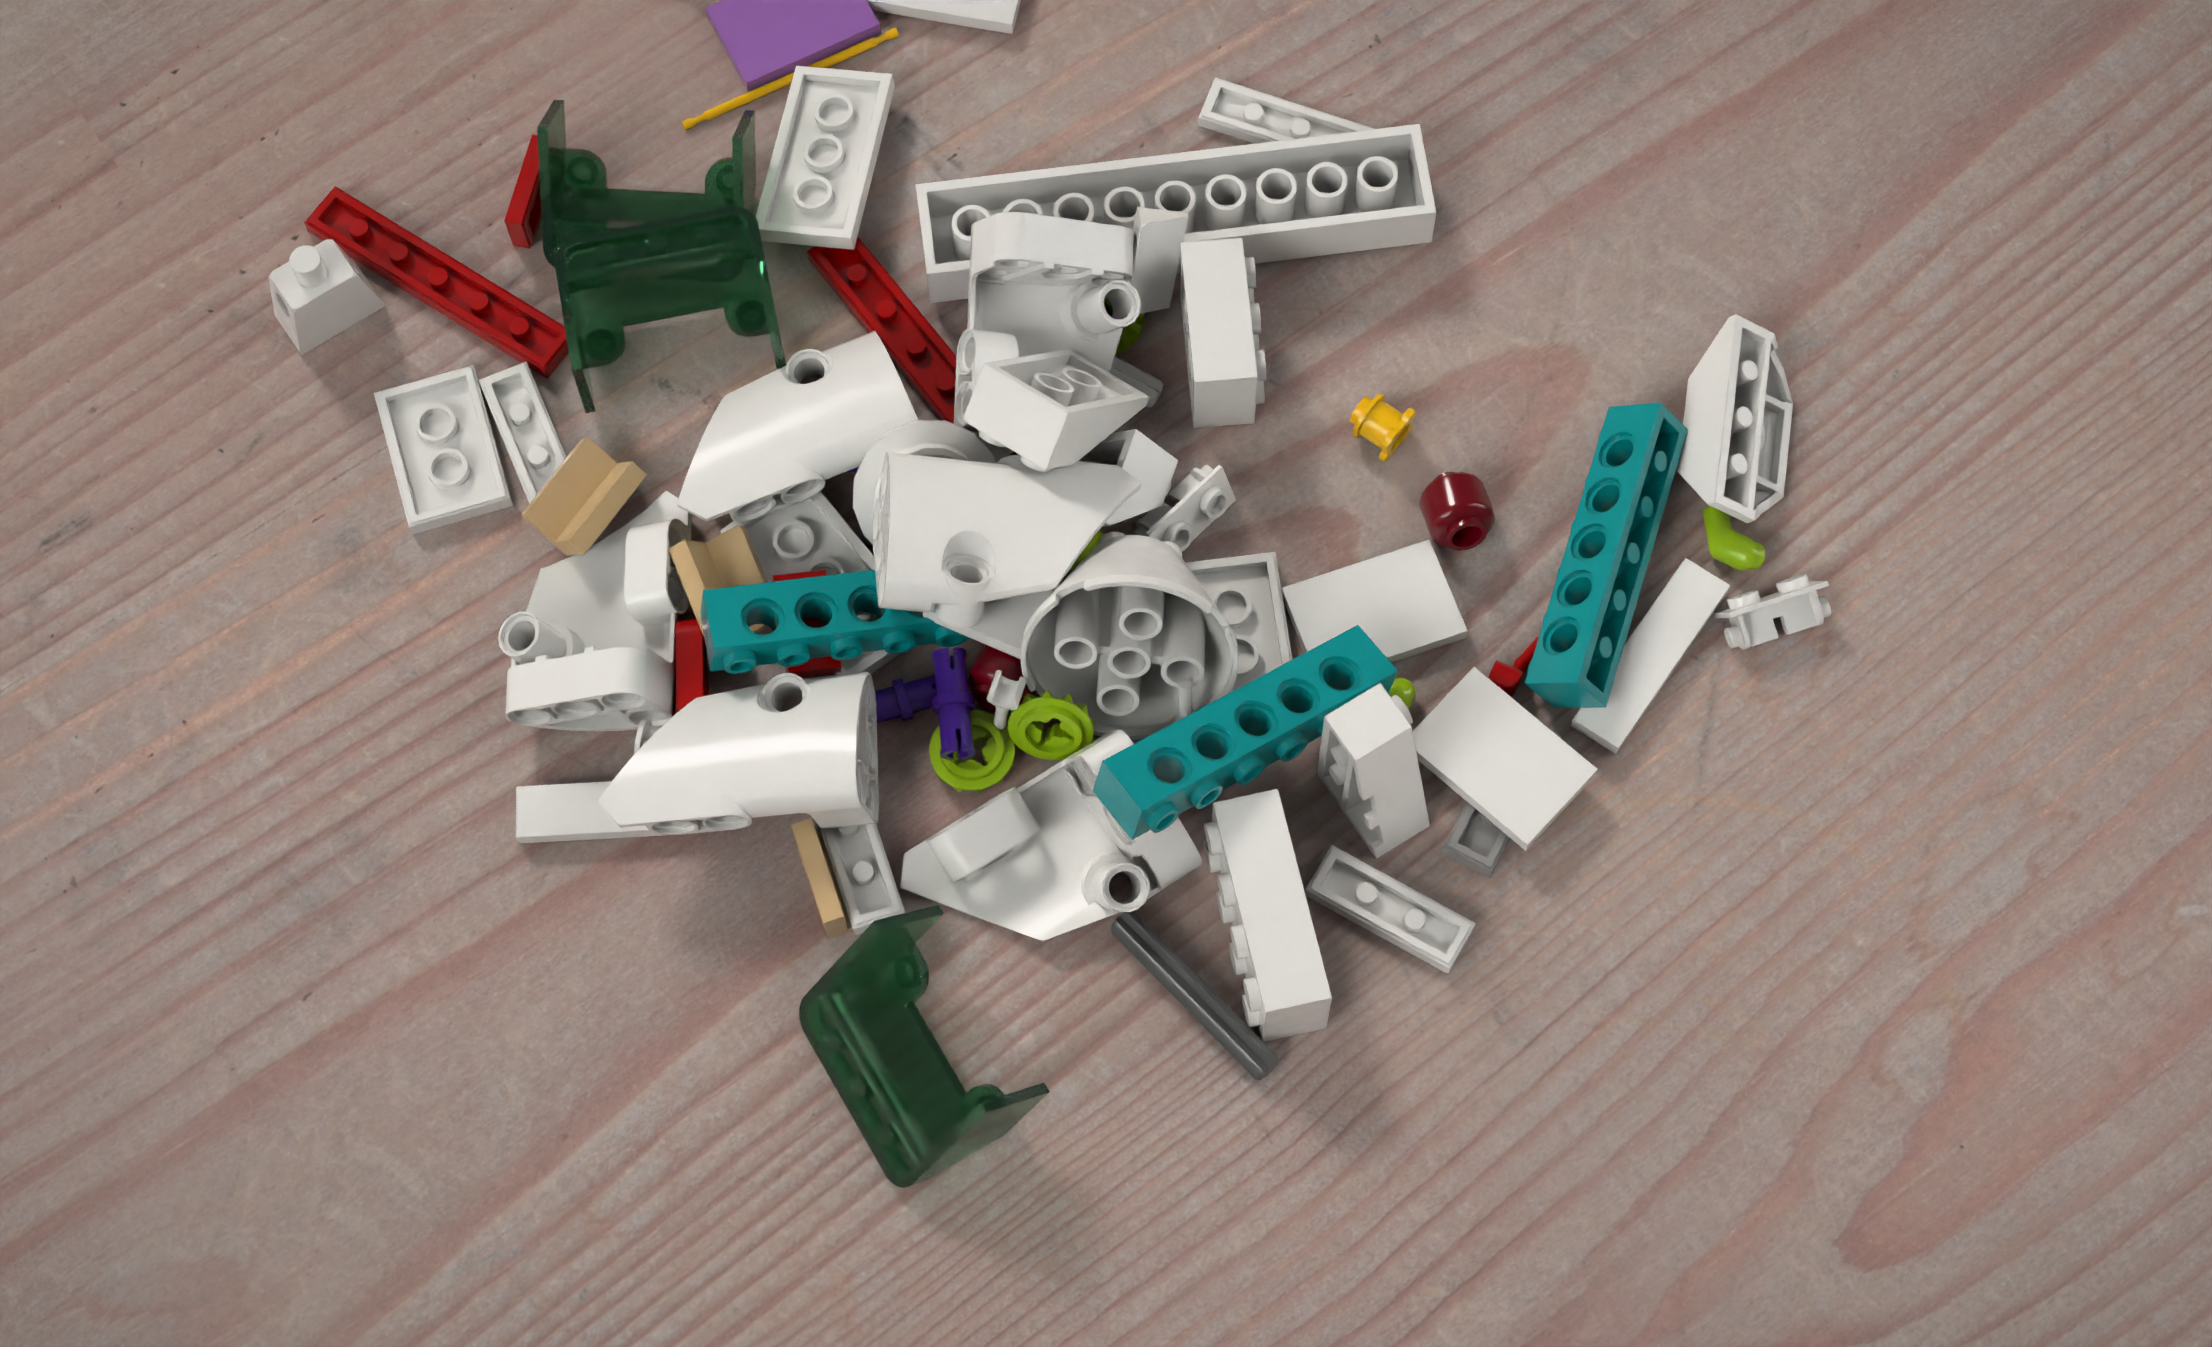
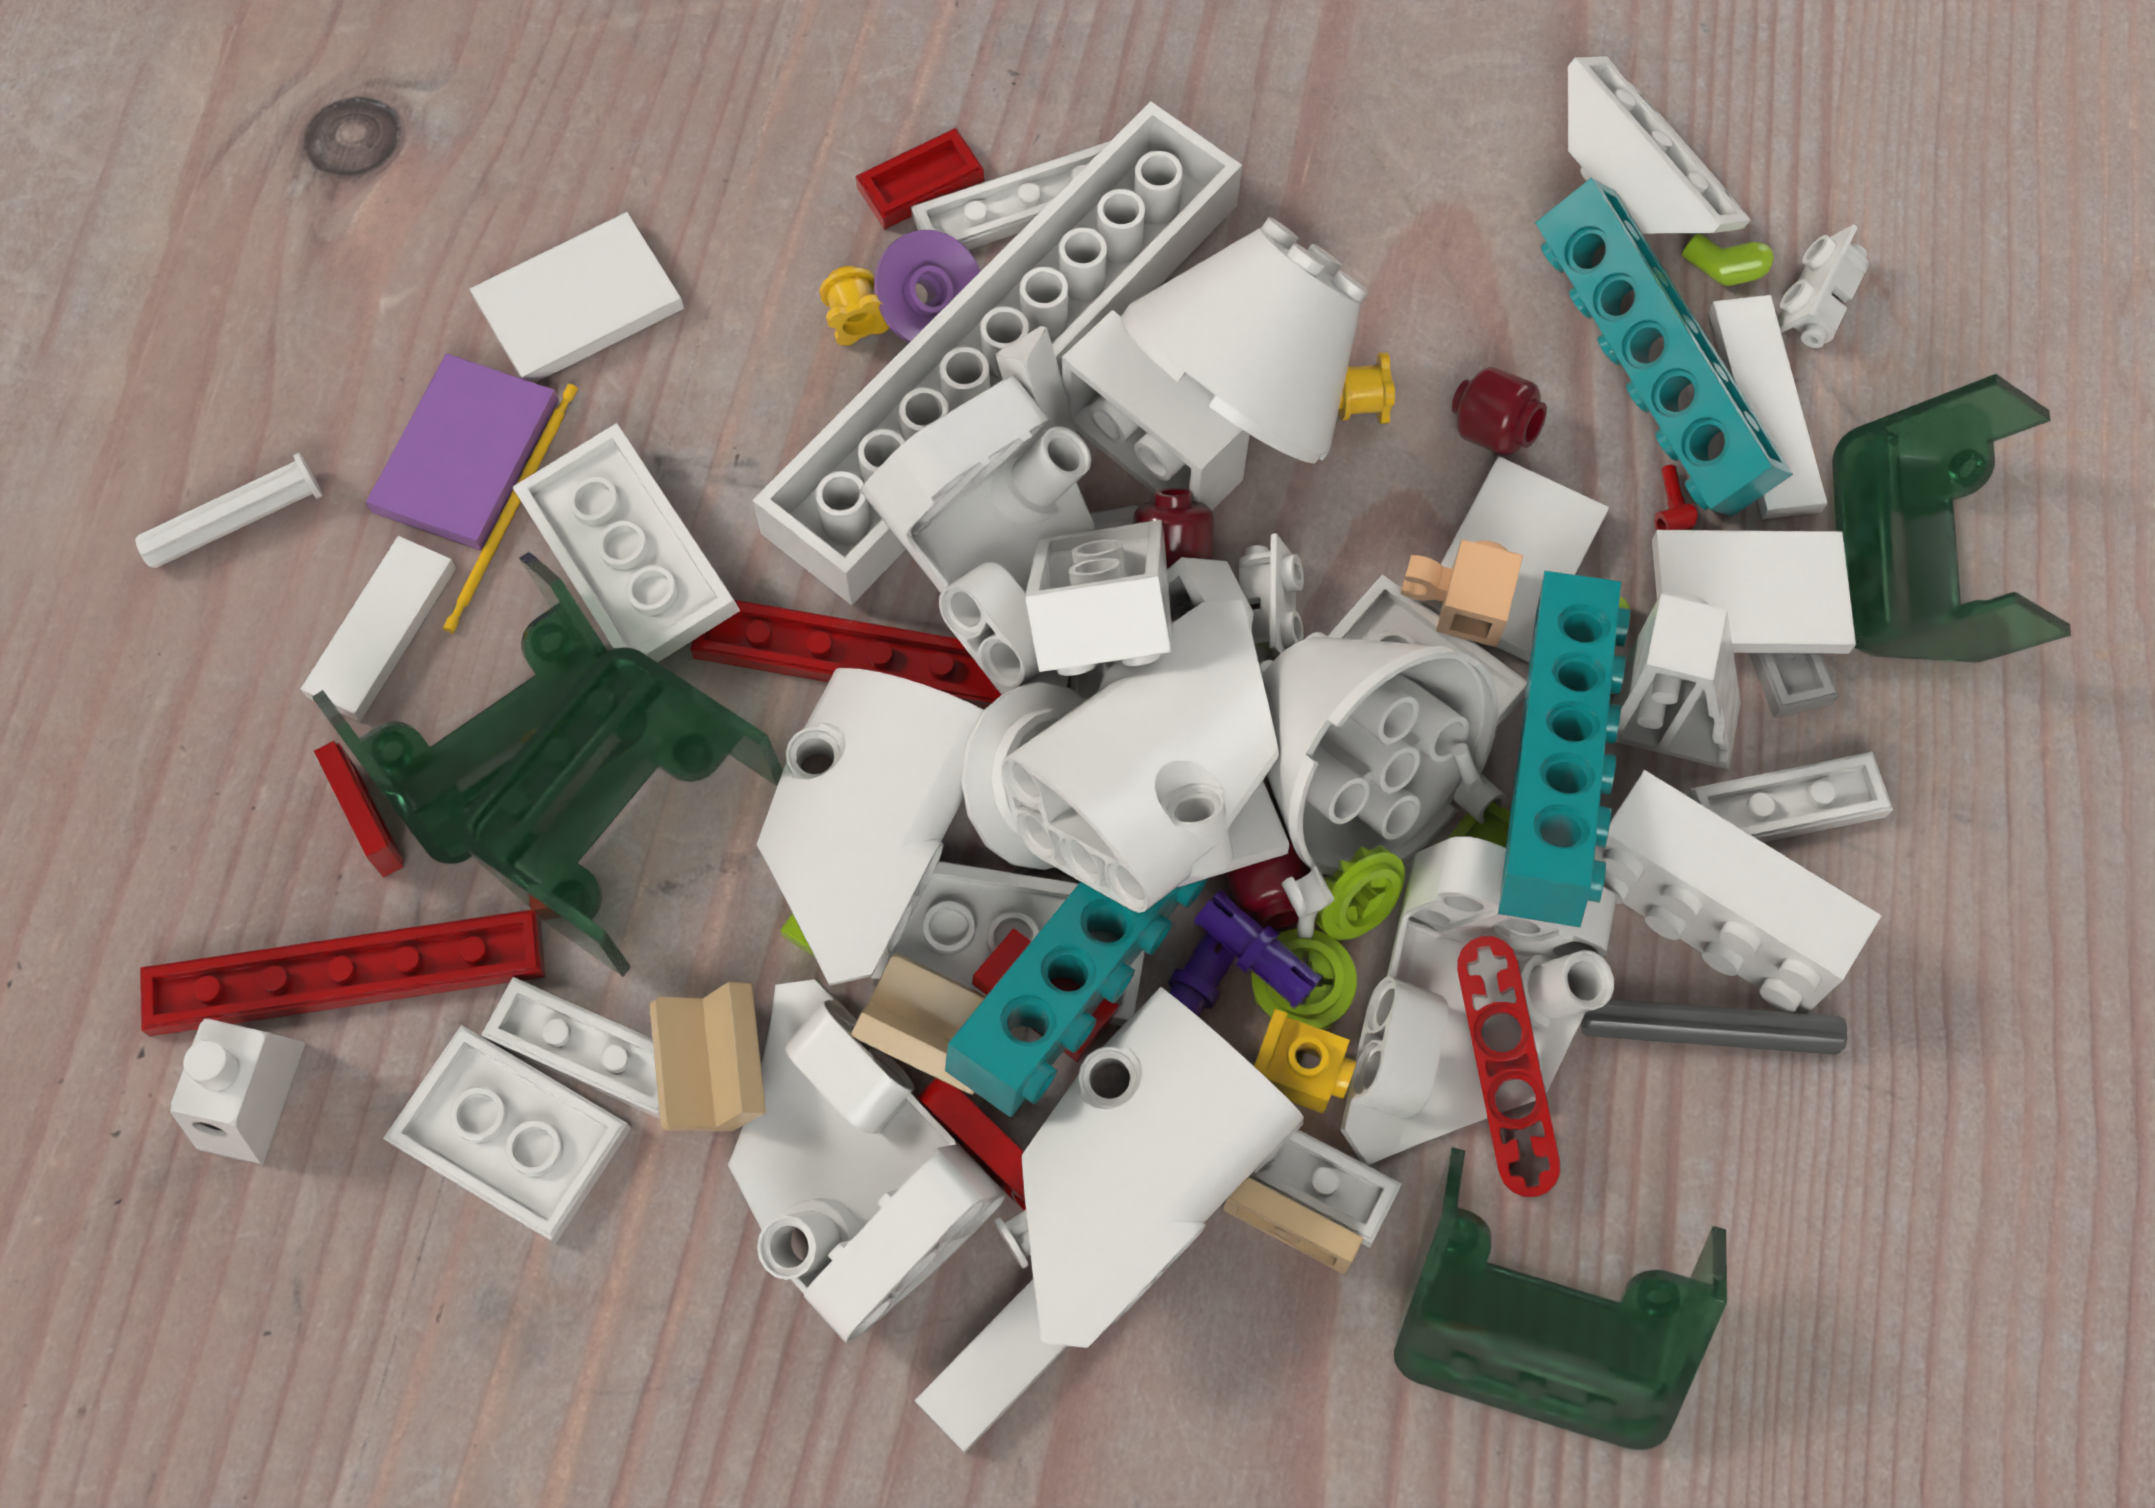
camera: 45 degrees left, 0 degrees up
(644, 92) = (379, 627): none -> white tile
(908, 775) = (1302, 1085): none -> yellow brick
(1028, 897) = (1500, 1067): none -> red beam
(1111, 112) = (852, 304): none -> yellow brick
(1166, 110) = (927, 259): none -> medium lavender dish
(1167, 414) = (1185, 523): none -> dark red head
(1242, 61) = (919, 176): none -> red tile
(1303, 330) = (1260, 332): none -> white cone
(1309, 605) = (1473, 592): none -> light nougat brick
(1653, 809) = (1899, 527): none -> clear green windscreen

